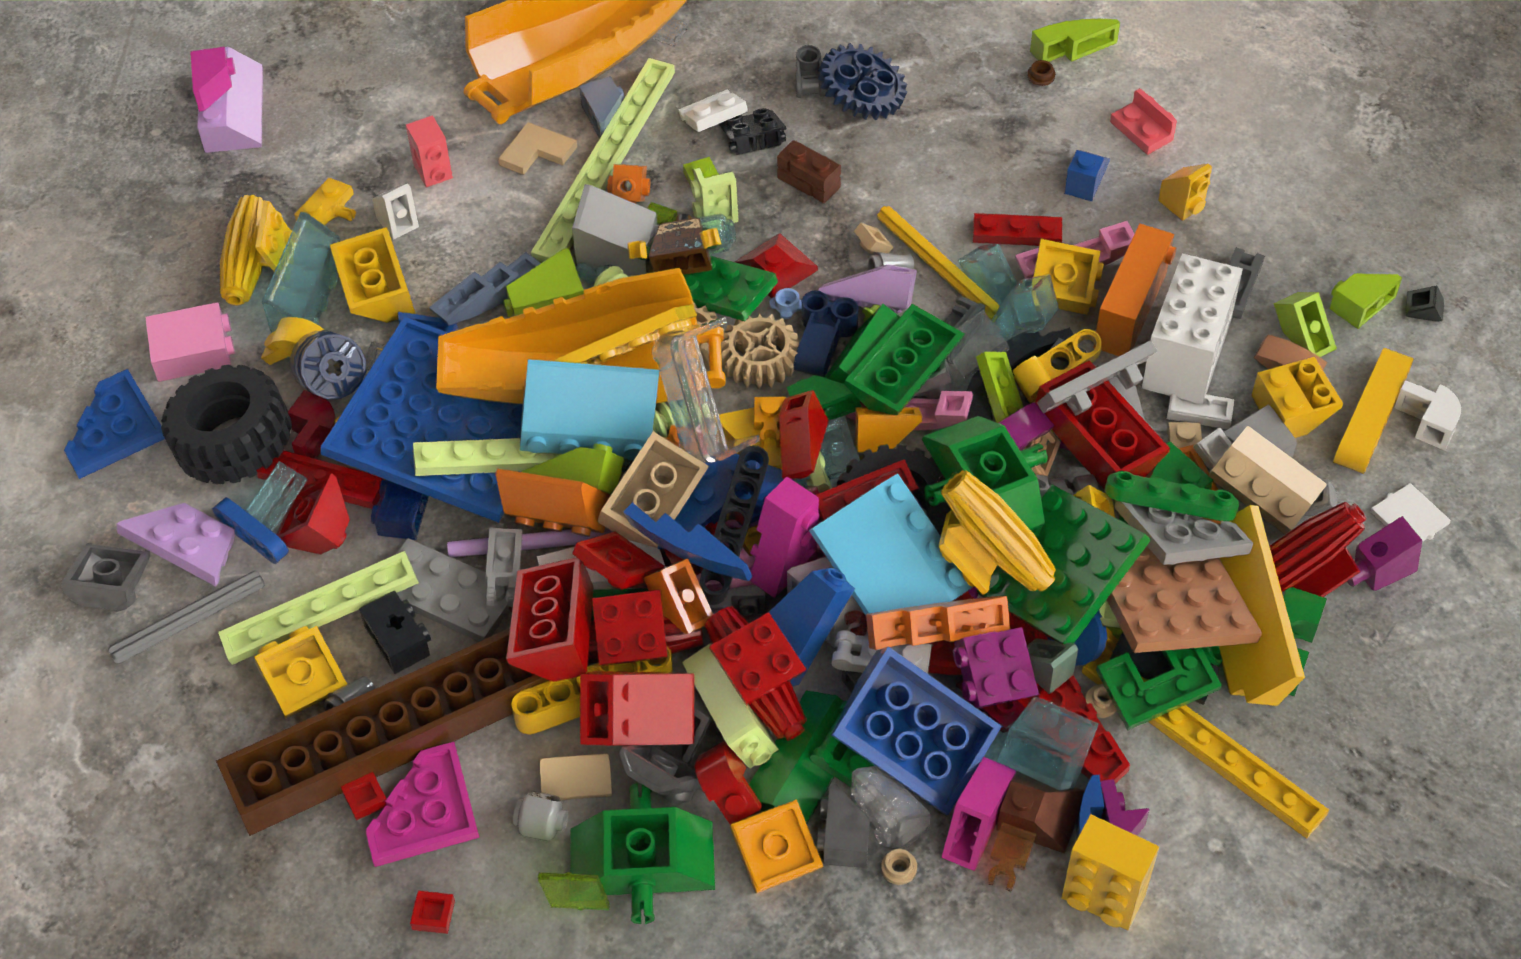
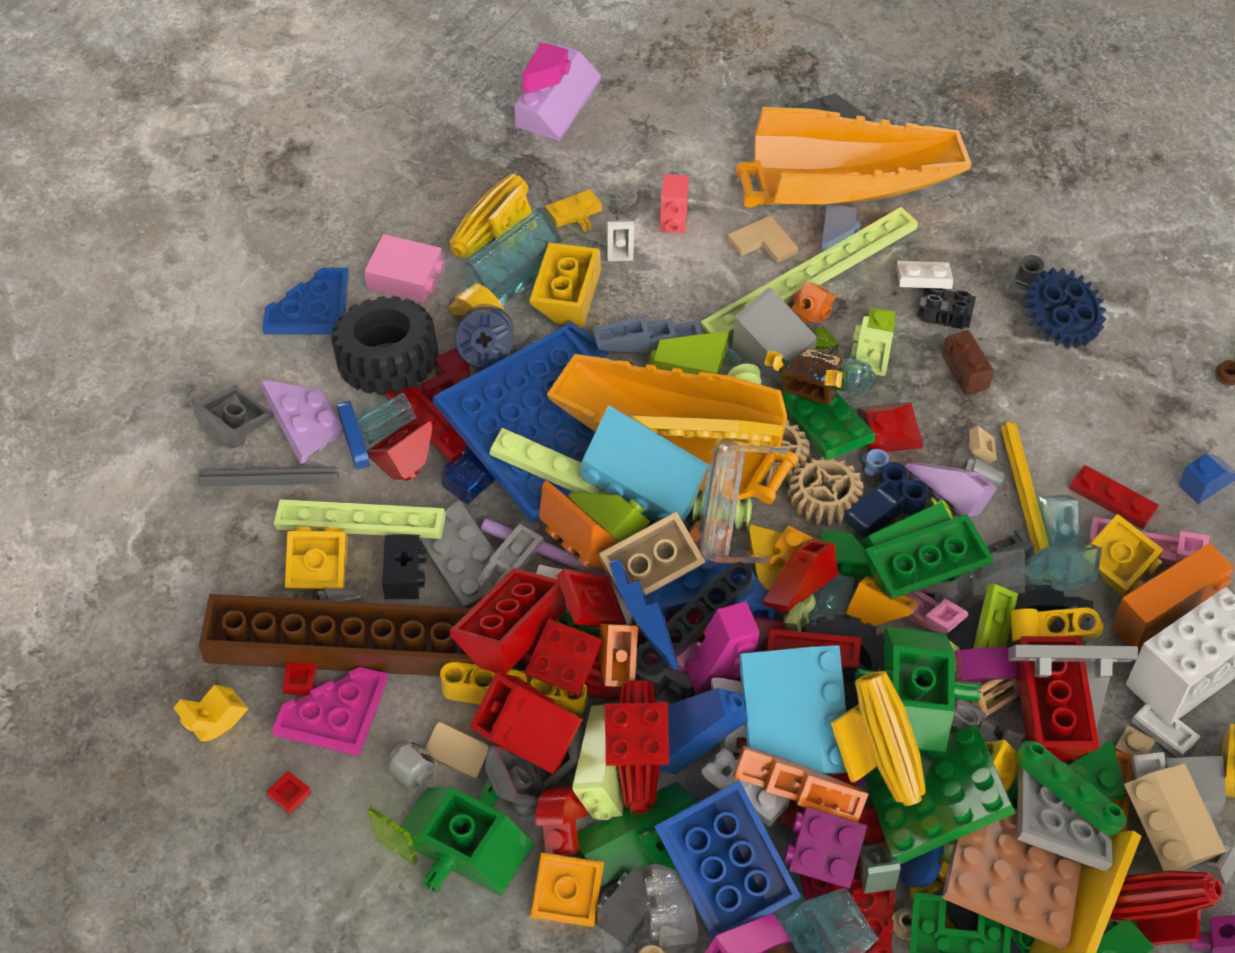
camera: 30 degrees right, 0 degrees up
(298, 878) = (213, 714): none -> yellow brick

